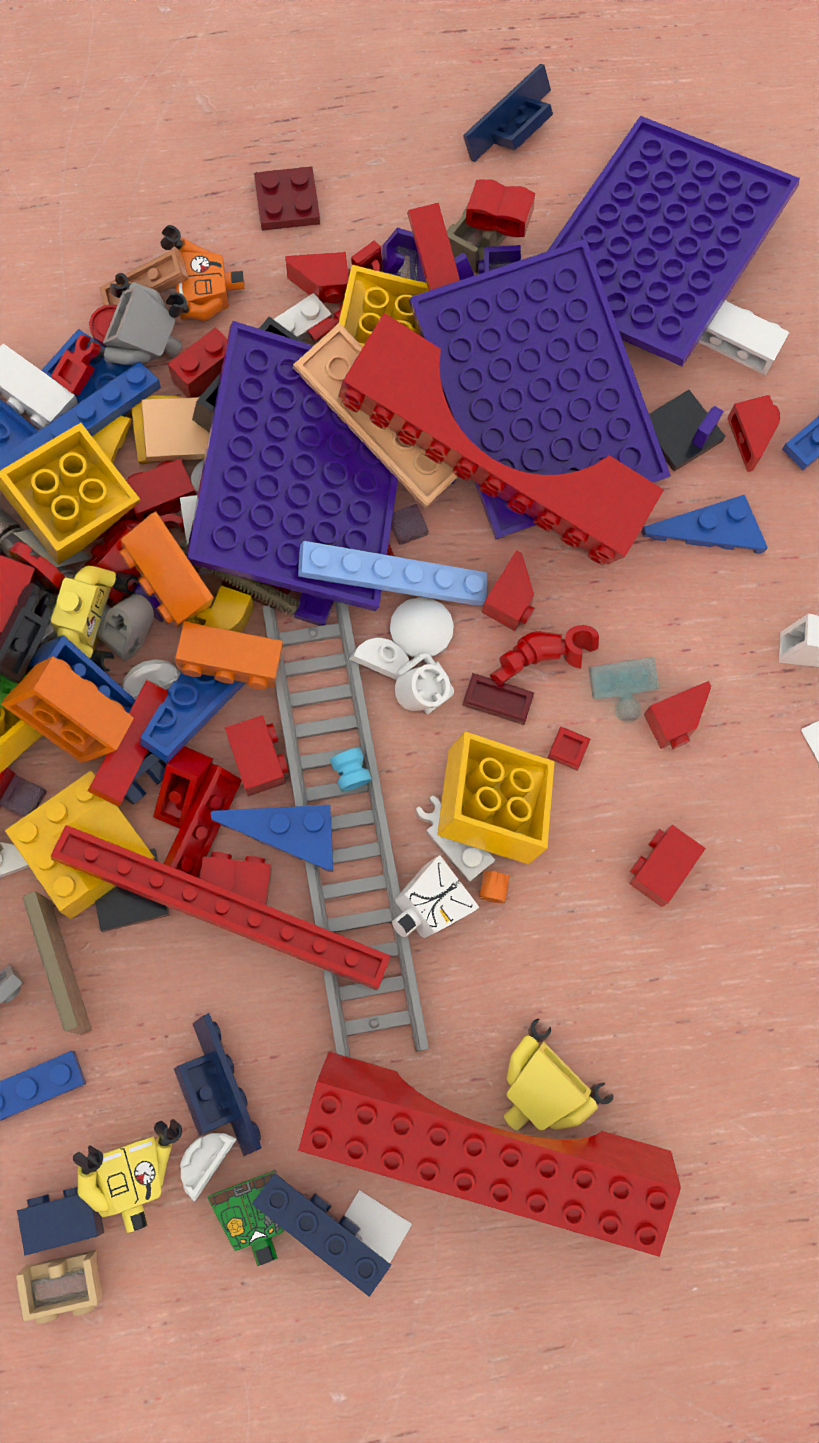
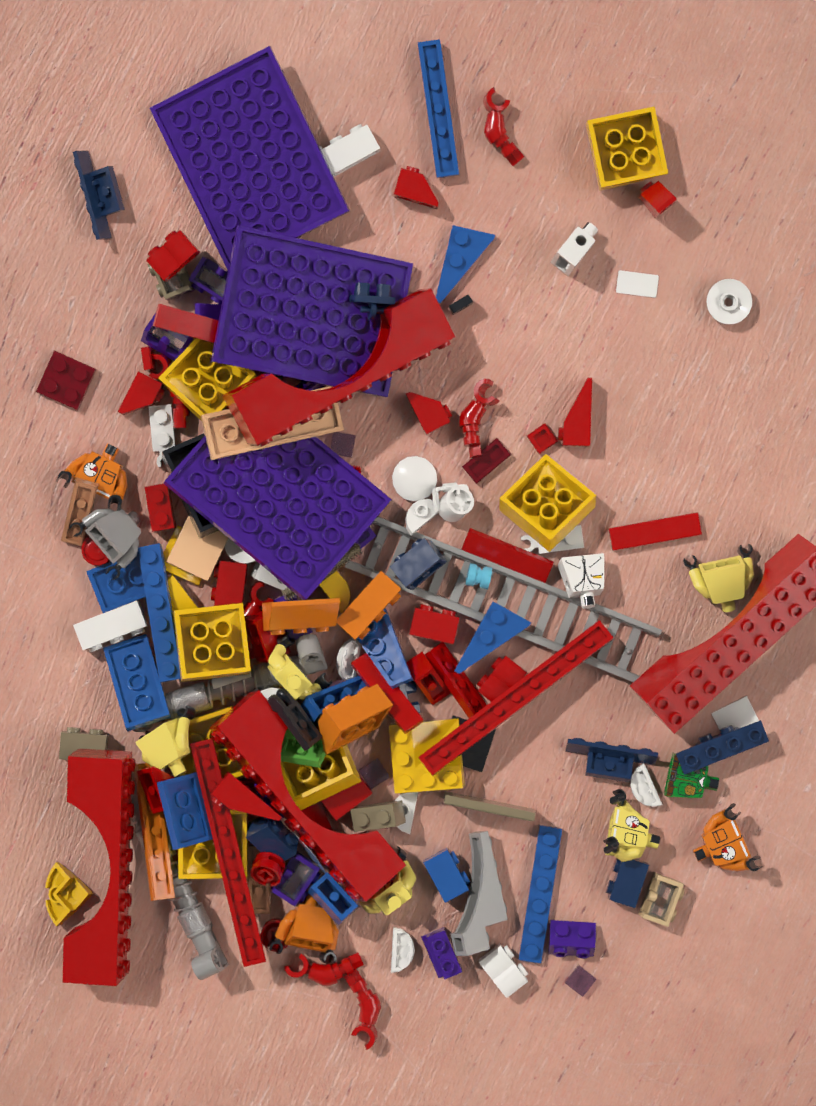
camera: 55 degrees left, 15 degrees up
(45, 571) = (252, 687): red tile -> none
(74, 368) = (119, 590): red plate -> none
(190, 1329) = (725, 843): none -> orange torso
(319, 685) = (418, 563): none -> dark blue brick
(392, 573) = (376, 478): light blue plate -> none
(399, 793) = (507, 555): none -> red tile
(494, 887) = (596, 535): orange hose -> none
(548, 960) = (655, 531): none -> red tile
(596, 443) = (383, 297): none -> dark blue hips
(619, 775) = (577, 424): none -> red slope
(623, 680) = (523, 380): clear light blue plate -> none
(661, 556) = (460, 304): none -> black tile
(666, 865) = (645, 430): red brick -> none
(676, 426) = (385, 232): black tile -> none
(677, 716) = (564, 363): red slope -> none
(707, 427) = (398, 221): dark purple tile -> none

